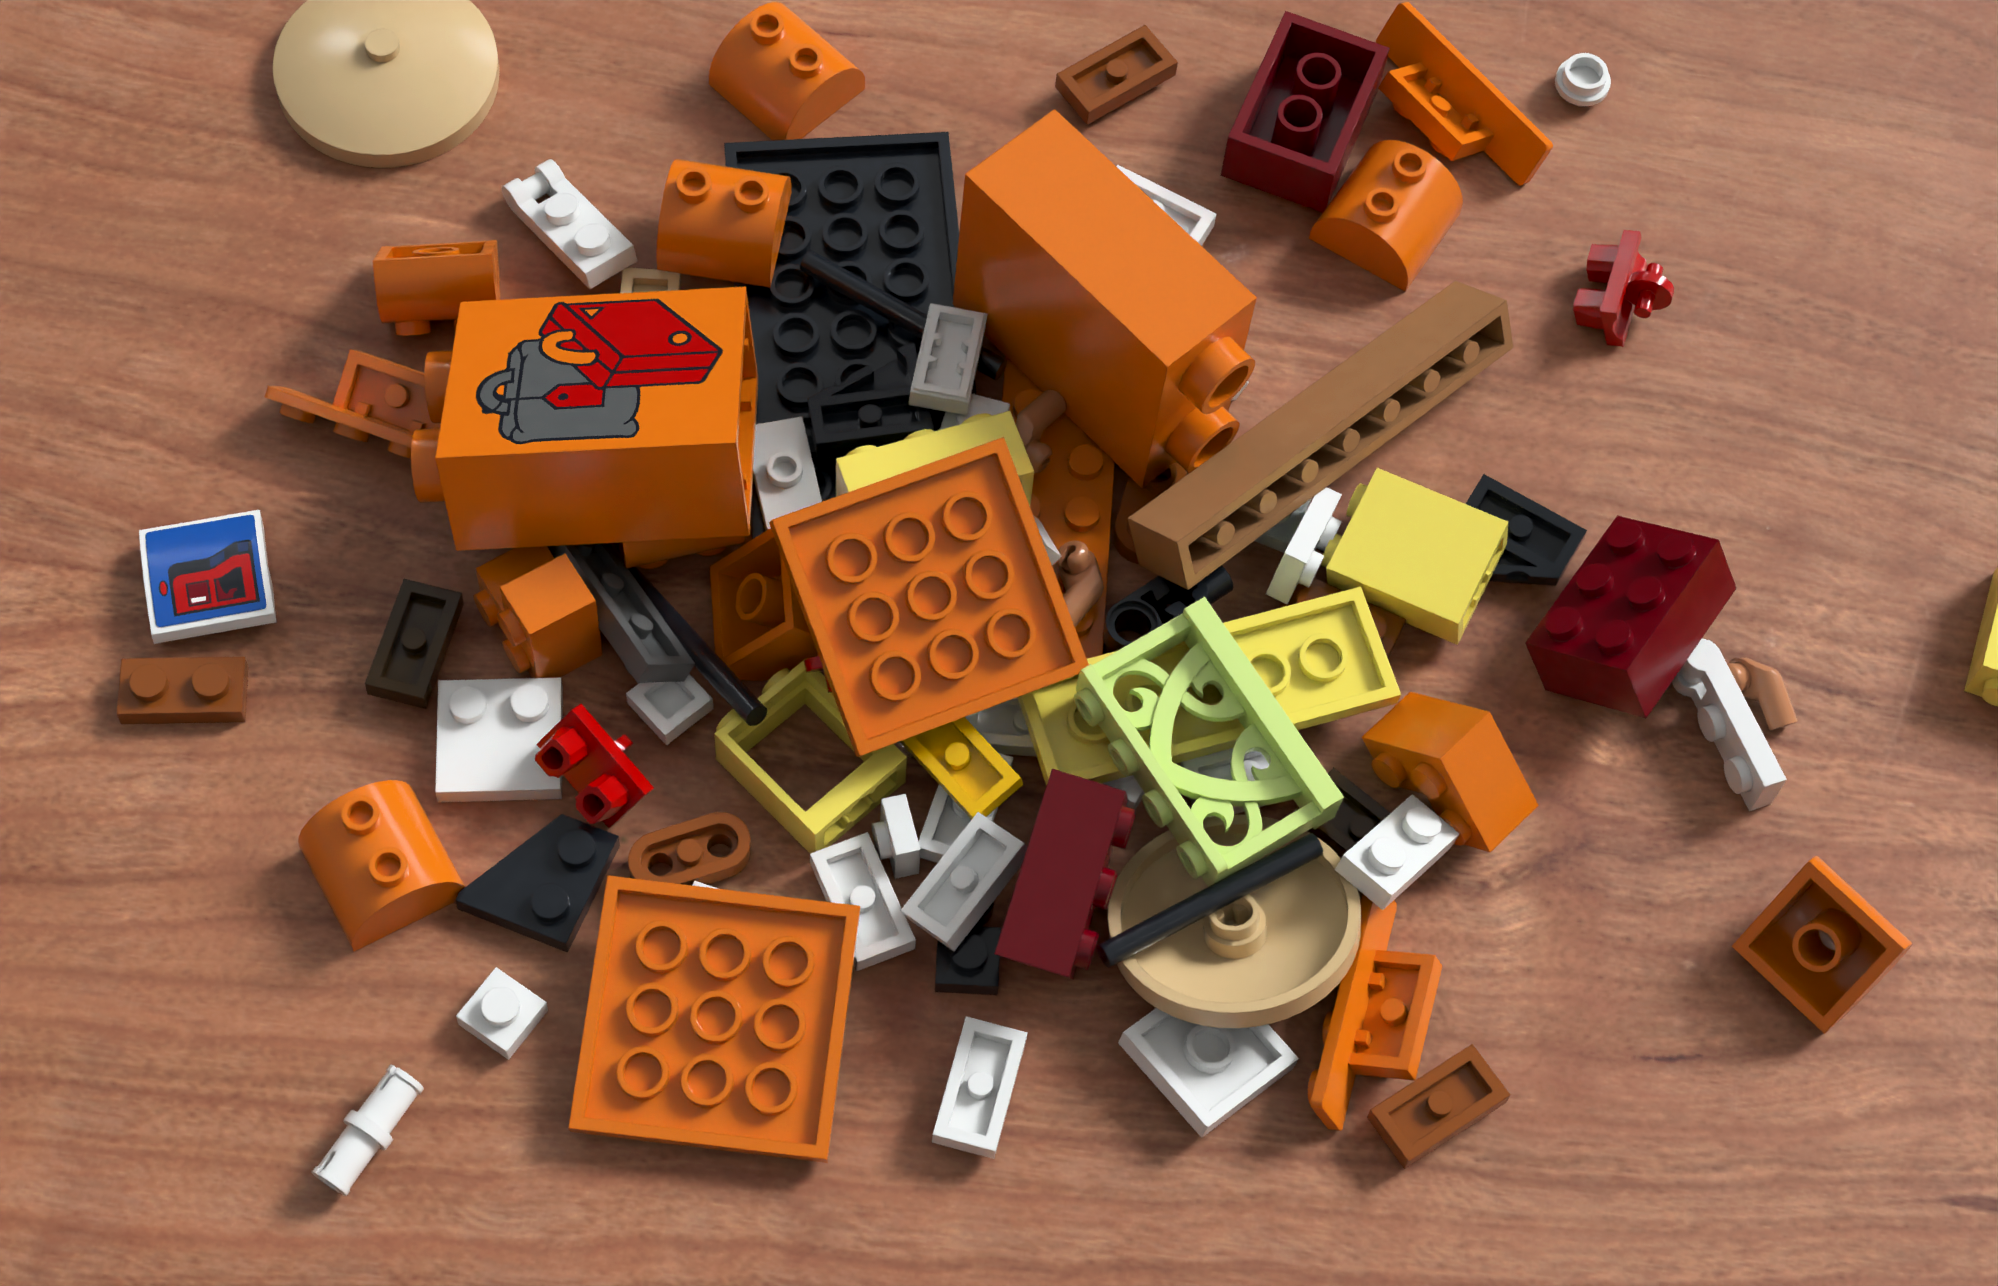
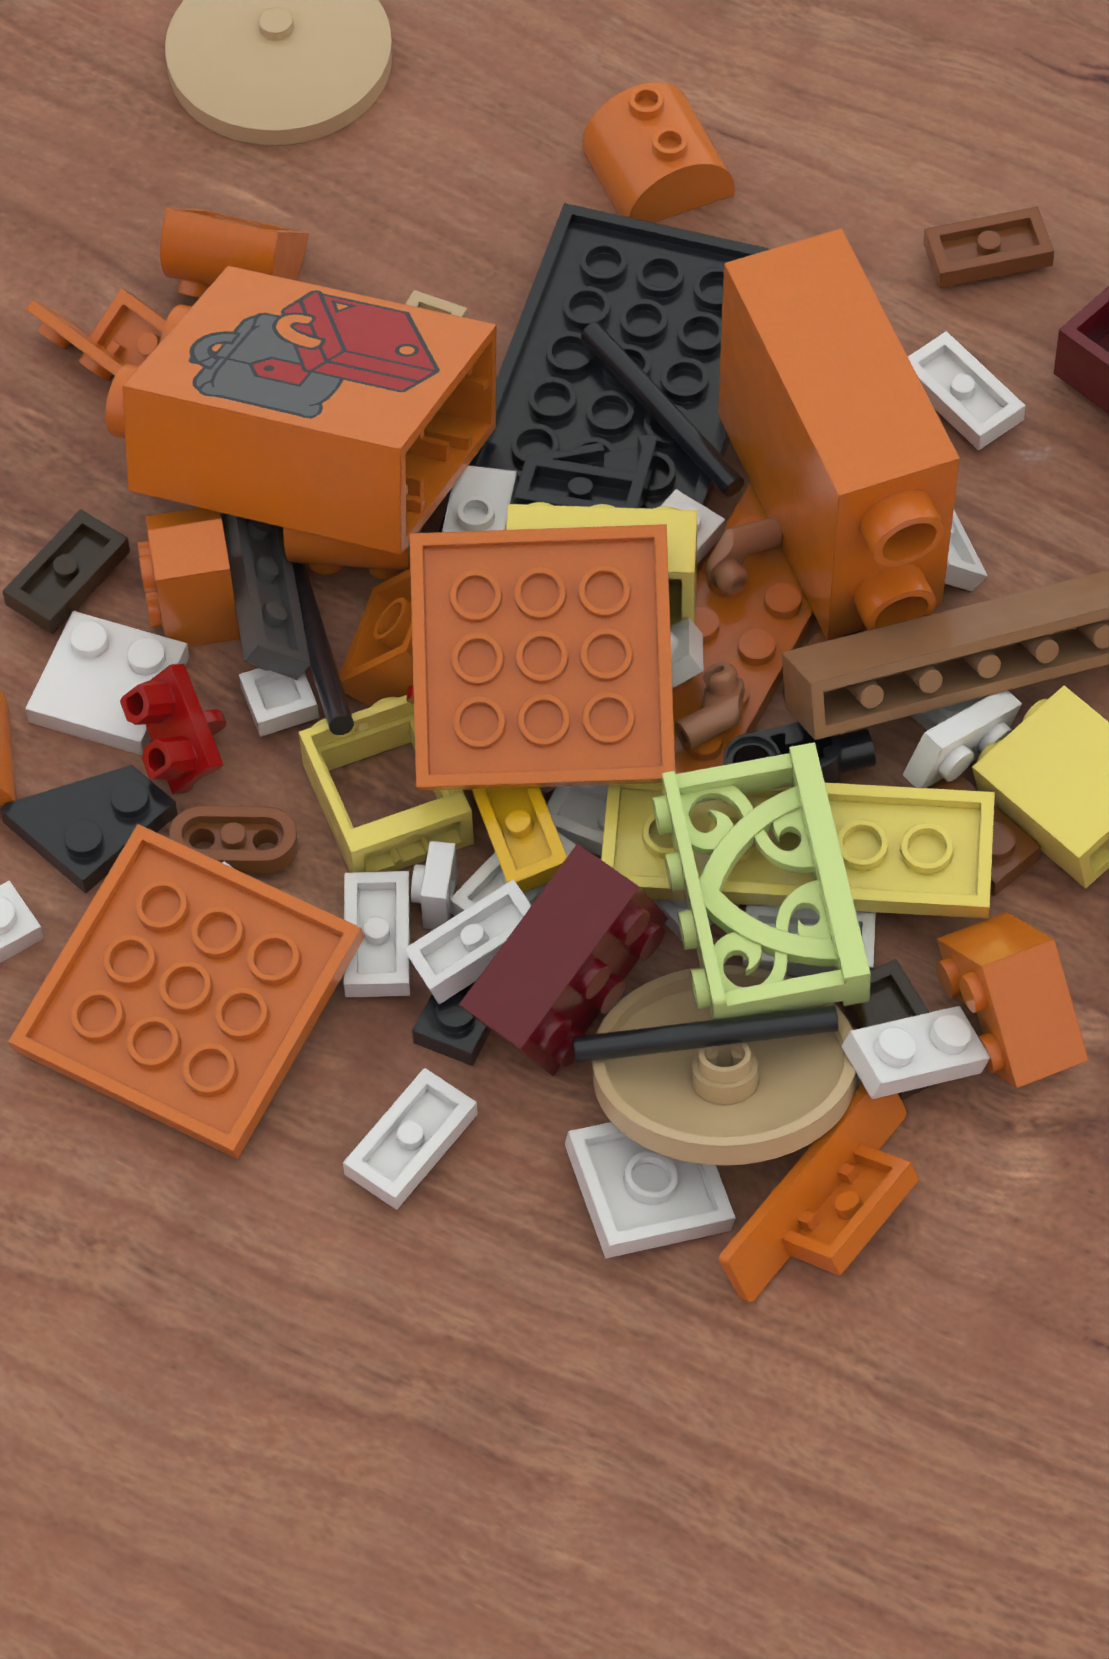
camera: 30 degrees right, 5 degrees down
(569, 225) = (382, 237): white plate -> none
(722, 222) = (522, 271): orange brick -> none
(948, 359) = (679, 457): white plate -> none
(1438, 1106) = (855, 1309): dark orange plate -> none

